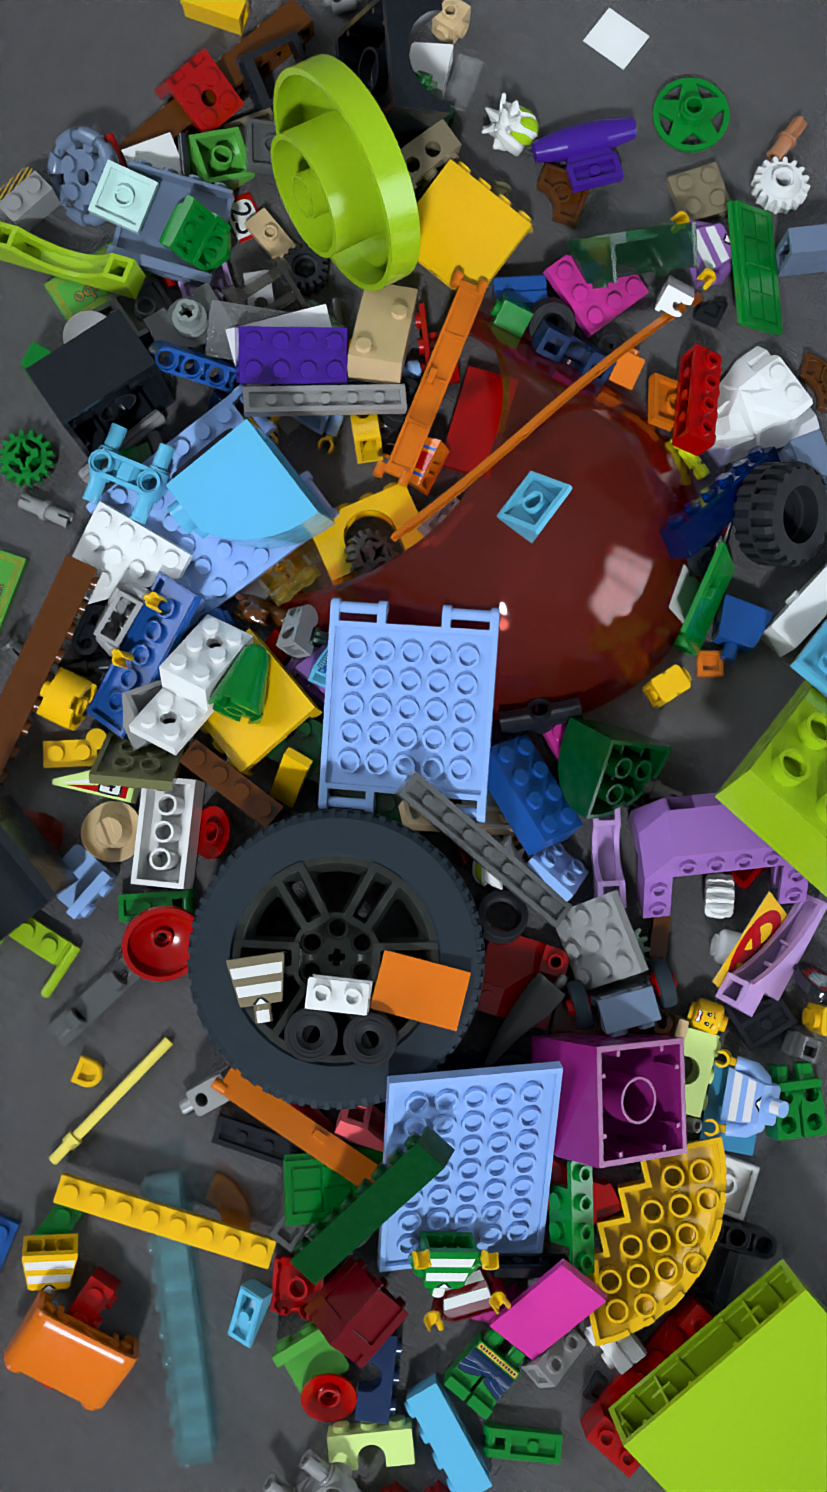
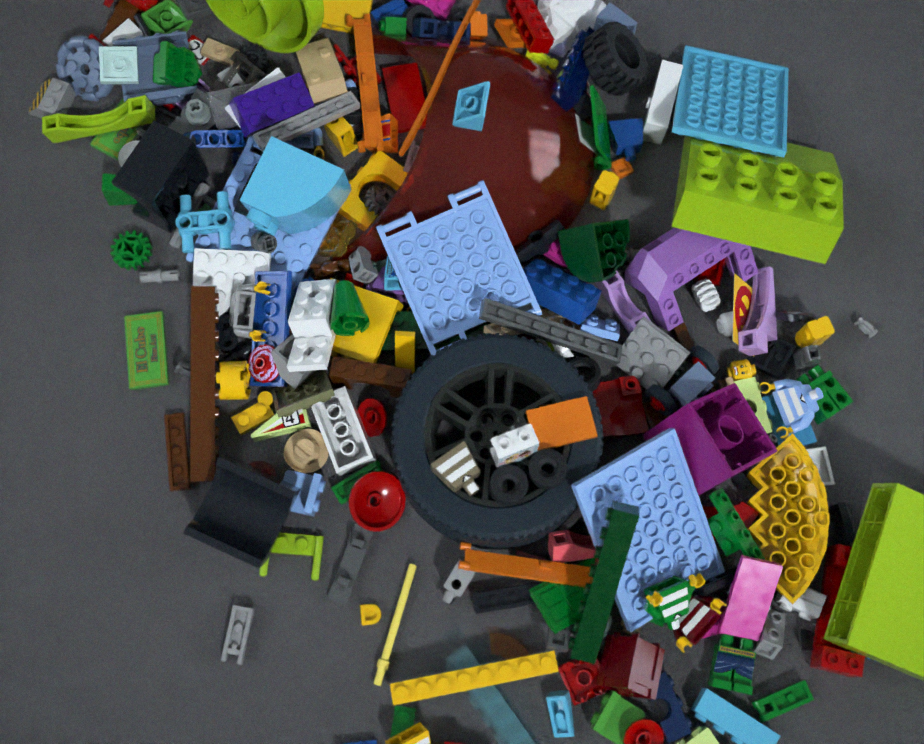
camera: 30 degrees left, 10 degrees down
(113, 685) = (266, 372): none -> dish
(187, 545) = (263, 242): none -> dark grey wheel
(531, 1007) = (632, 417): dark grey piece -> none
(747, 1240) = (844, 492): black beam -> none

